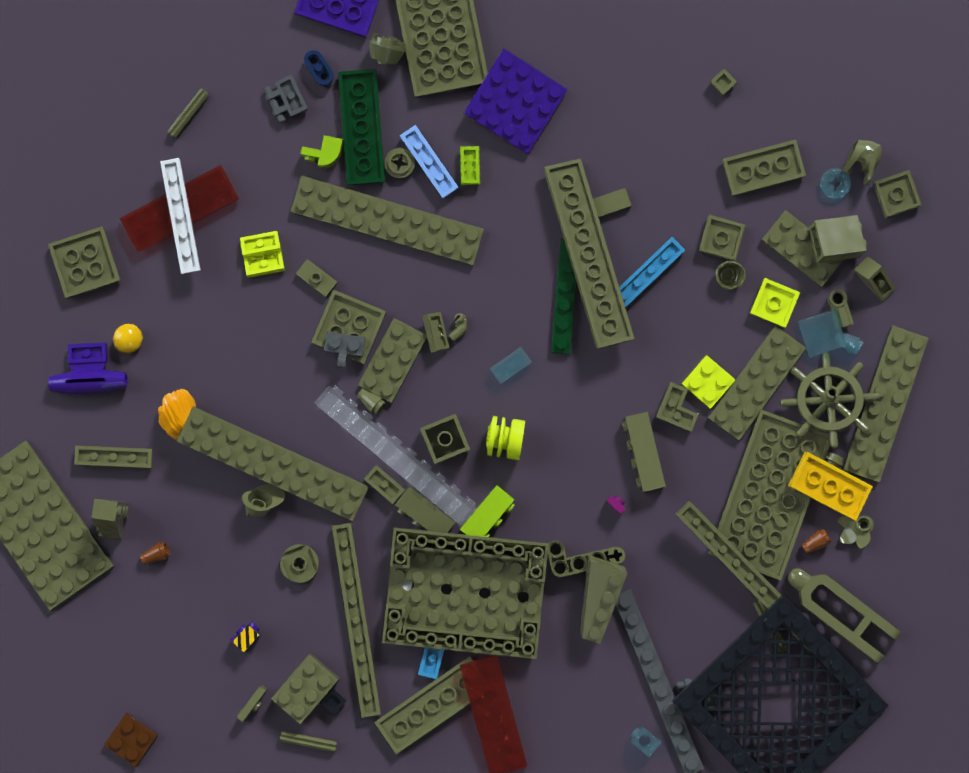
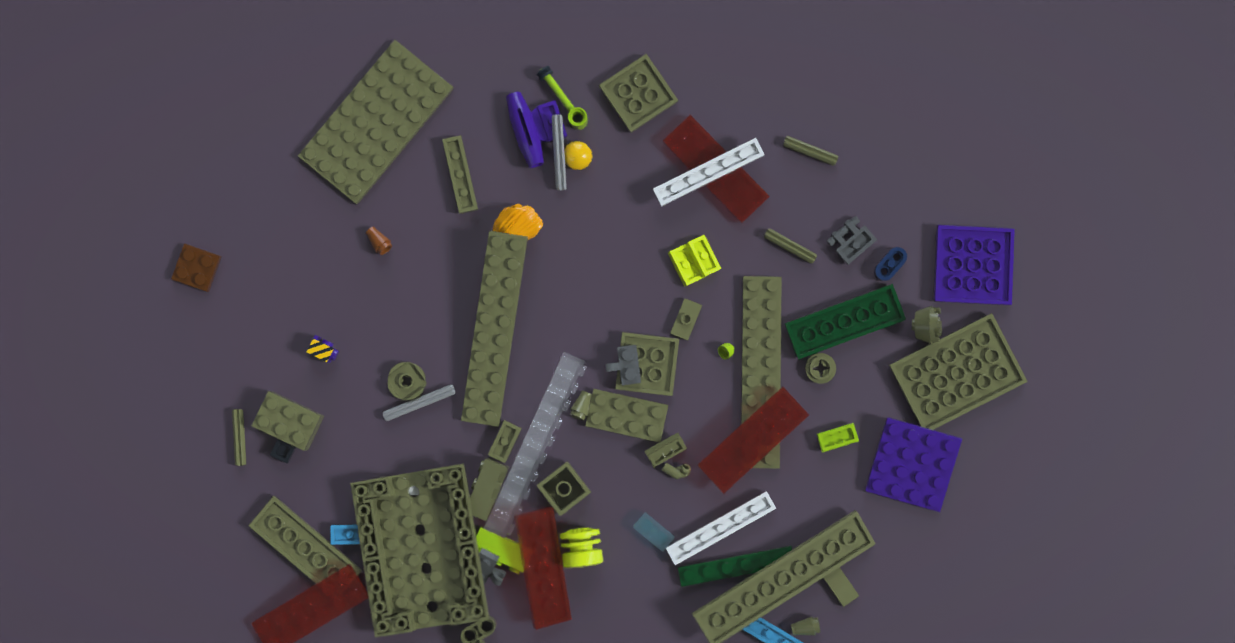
camera: 75 degrees right, 0 degrees up
(39, 347) = (545, 74): none -> lime piece
(109, 518) = (400, 187): olive wedge -> none
(119, 354) = (559, 155): none -> light grey axle
(253, 704) = (259, 374): olive plate -> none
(262, 499) = (457, 328): olive piece -> none
(274, 158) = (790, 246): none -> olive axle
(324, 559) = (419, 402): none -> light grey axle
(328, 155) = (810, 297): lime brick -> none
(356, 620) = (367, 451): olive plate -> none
(357, 248) = (726, 350): none -> lime hinge
(429, 161) = (831, 395): light blue plate -> none
(449, 245) = (753, 440): none -> clear red plate
(494, 530) = (488, 561): none -> dark grey plate
(514, 479) = (543, 567): none -> clear red plate
(524, 300) = (720, 528): none -> white plate
(640, 246) = (807, 626): none -> olive cone

